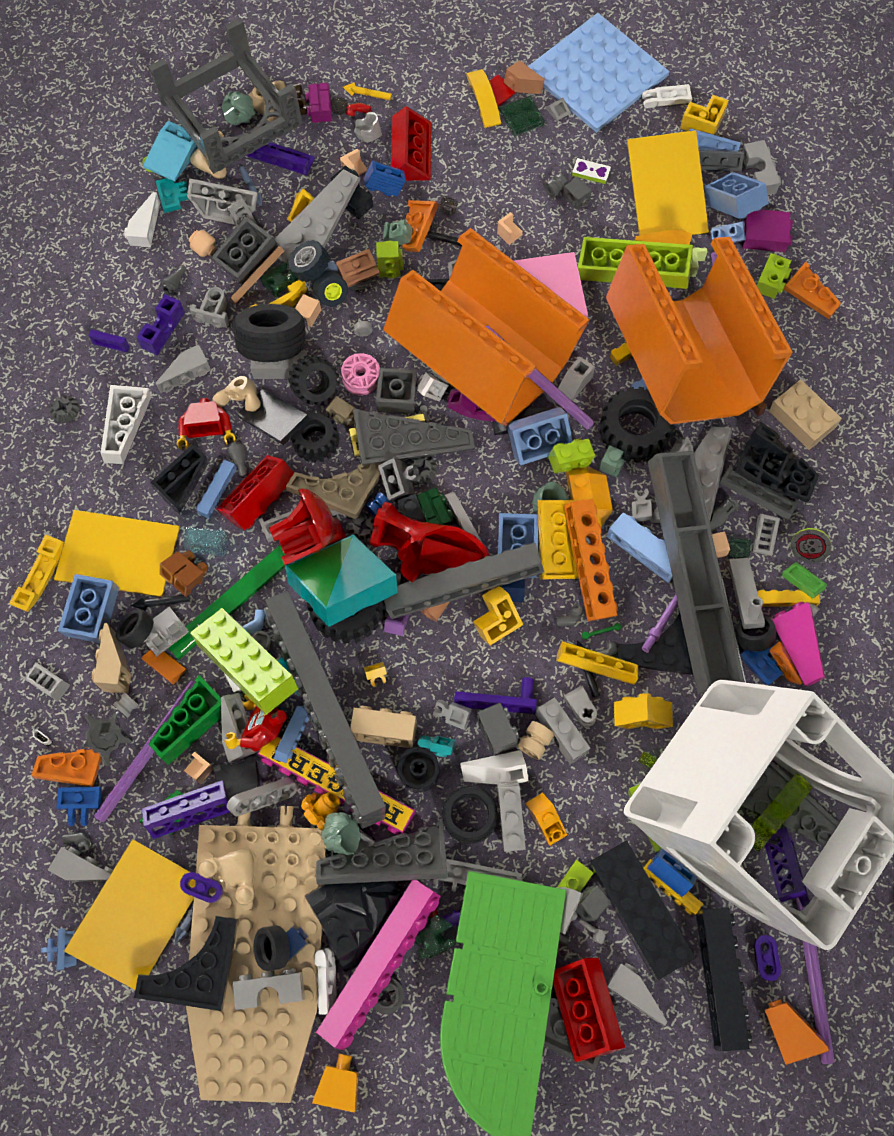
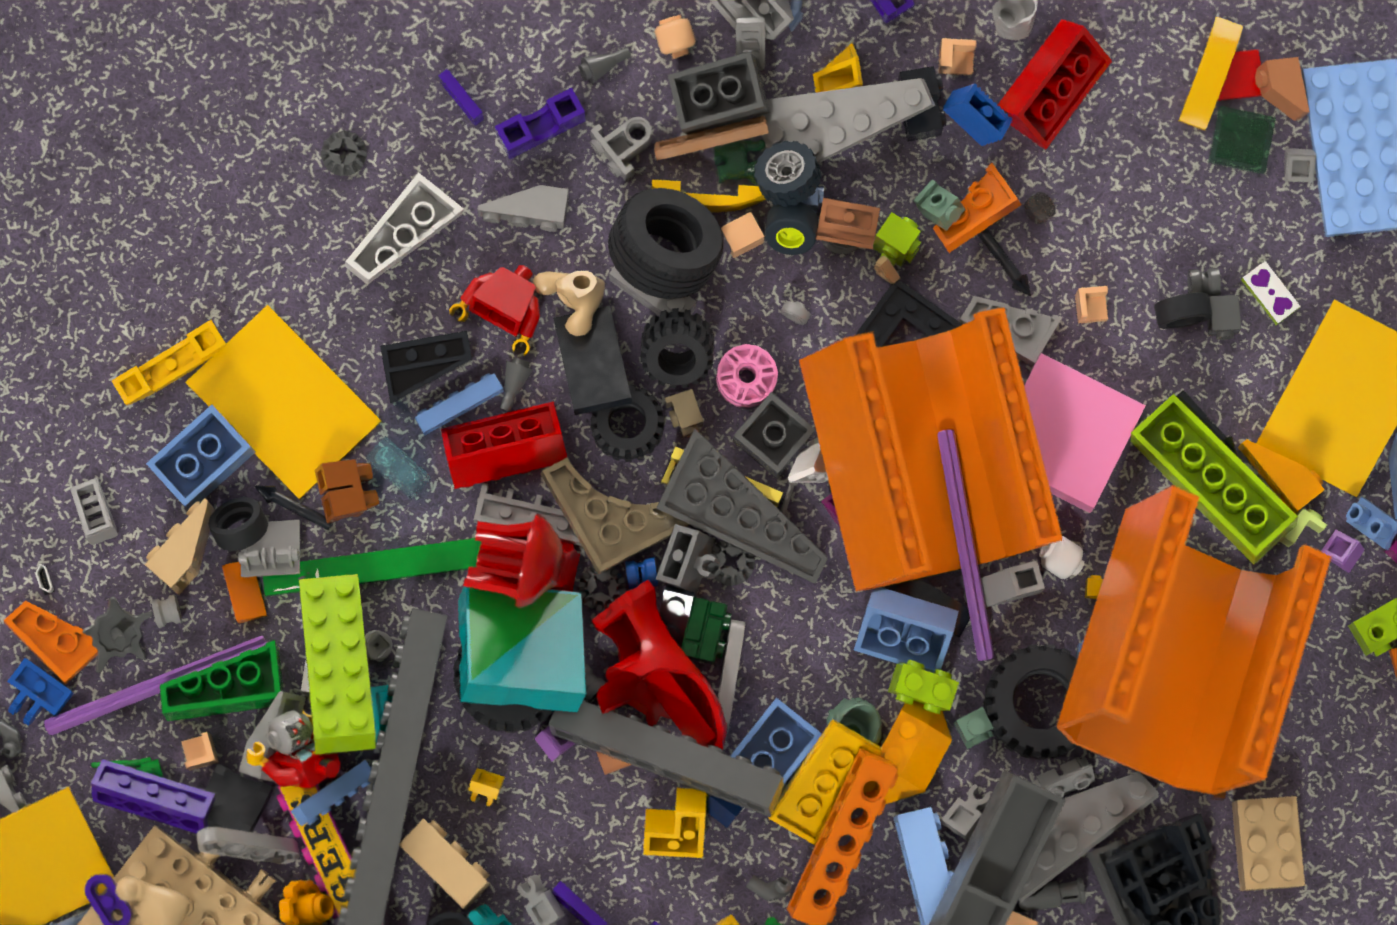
camera: 30 degrees right, 10 degrees up
(242, 714) = (289, 732): none -> light grey head
(257, 624) = (385, 620): light blue arm -> none
(393, 277) = (886, 270): none -> tan tile
(556, 200) = (1183, 310): none -> black tyre
(590, 351) = (1062, 558): none -> white head

